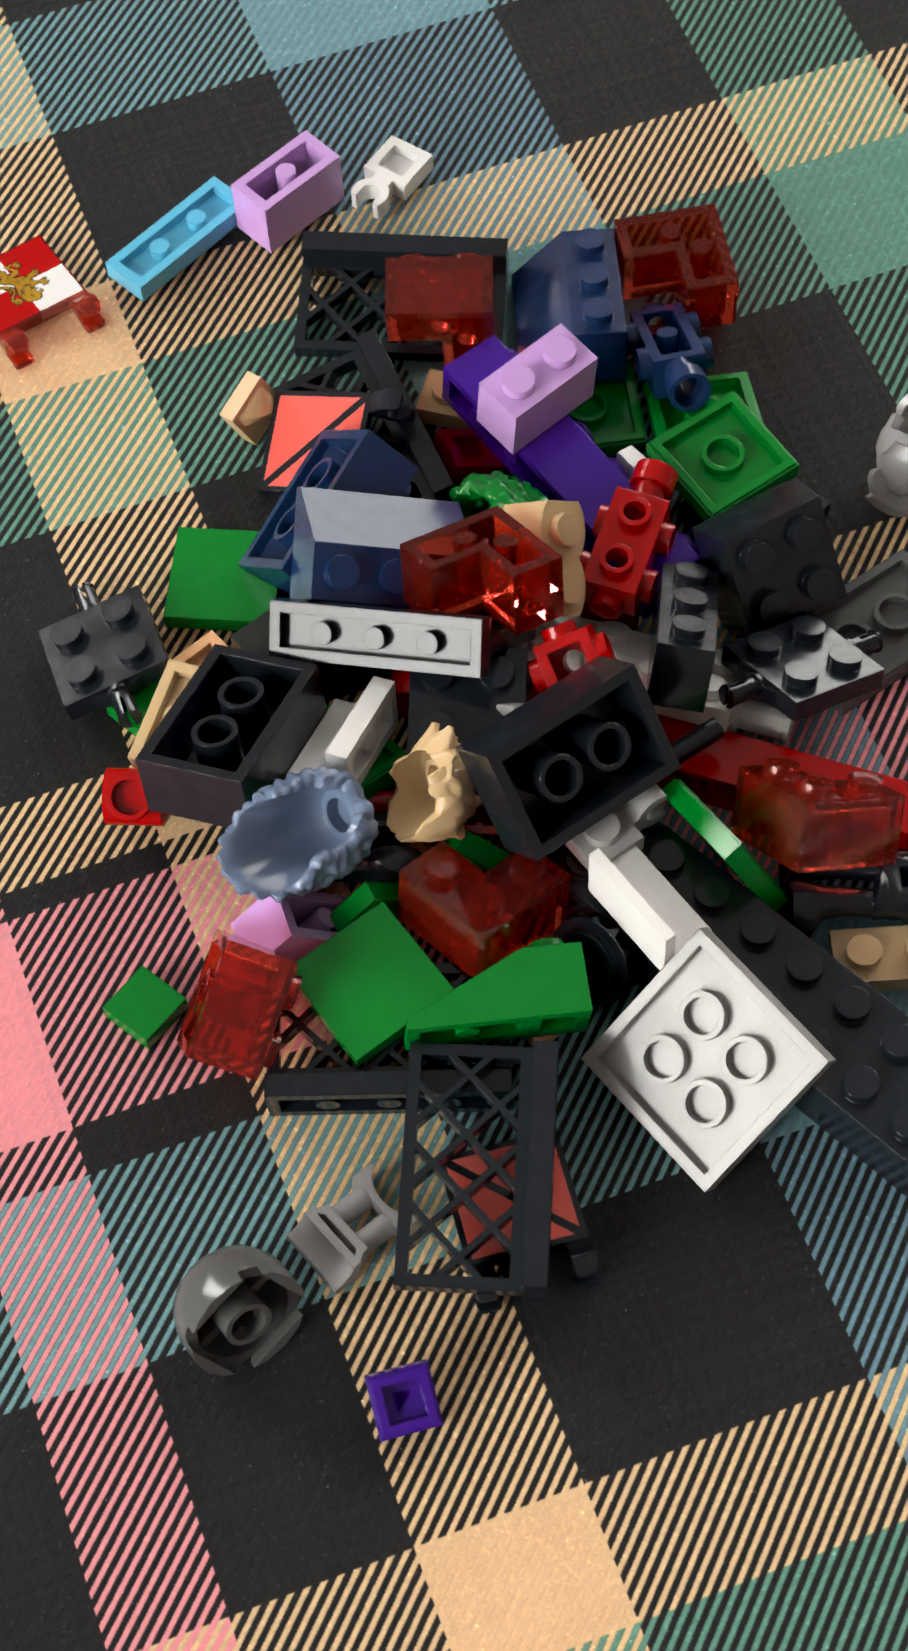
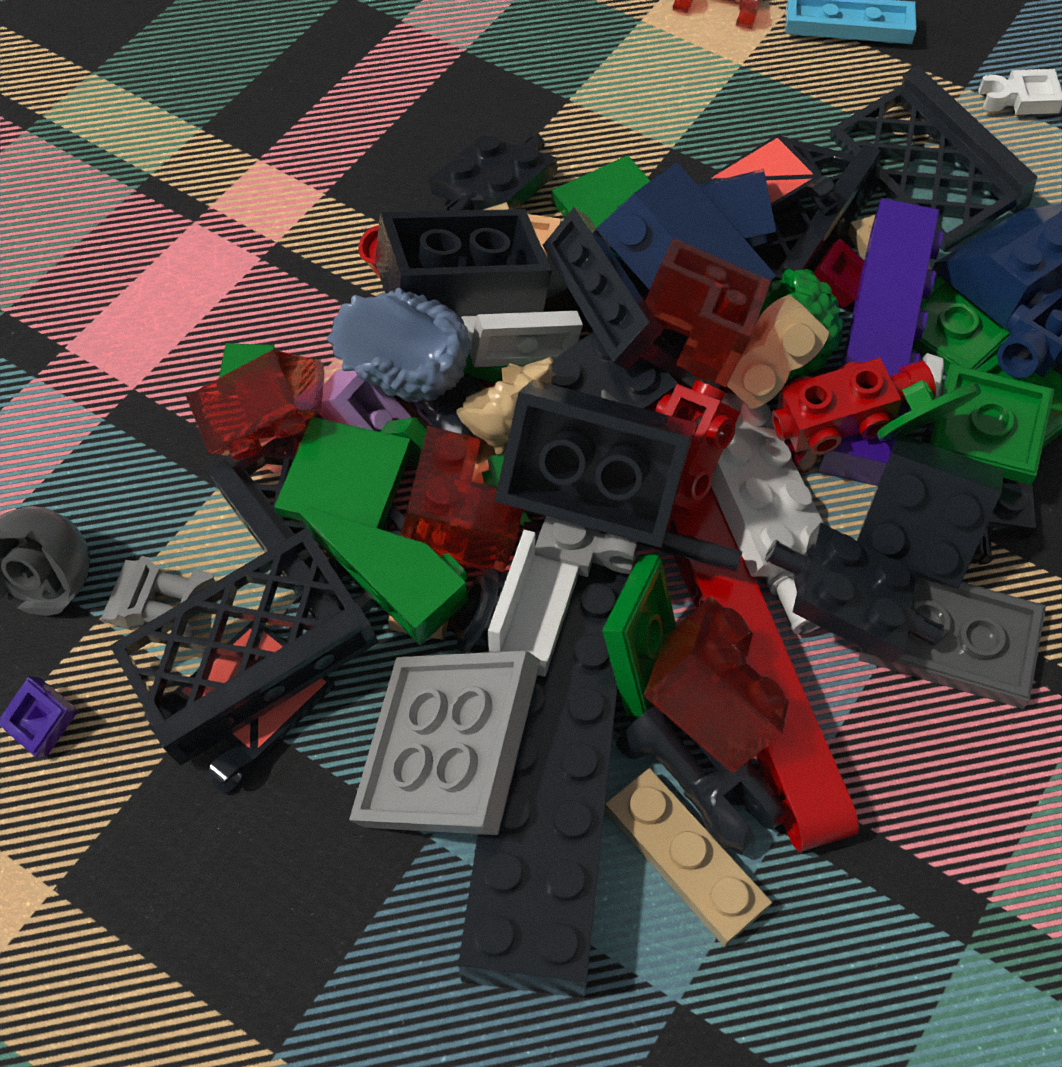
camera: 50 degrees right, 0 degrees up
(250, 408) = (751, 127): tan tile -> none
(288, 191) = (944, 41): lavender brick -> none
(441, 300) = (936, 164): clear red brick -> none
(536, 388) = (913, 255): lavender brick -> none
(683, 636) = (793, 486): black brick -> none
(696, 490) = (926, 408): none -> green piece

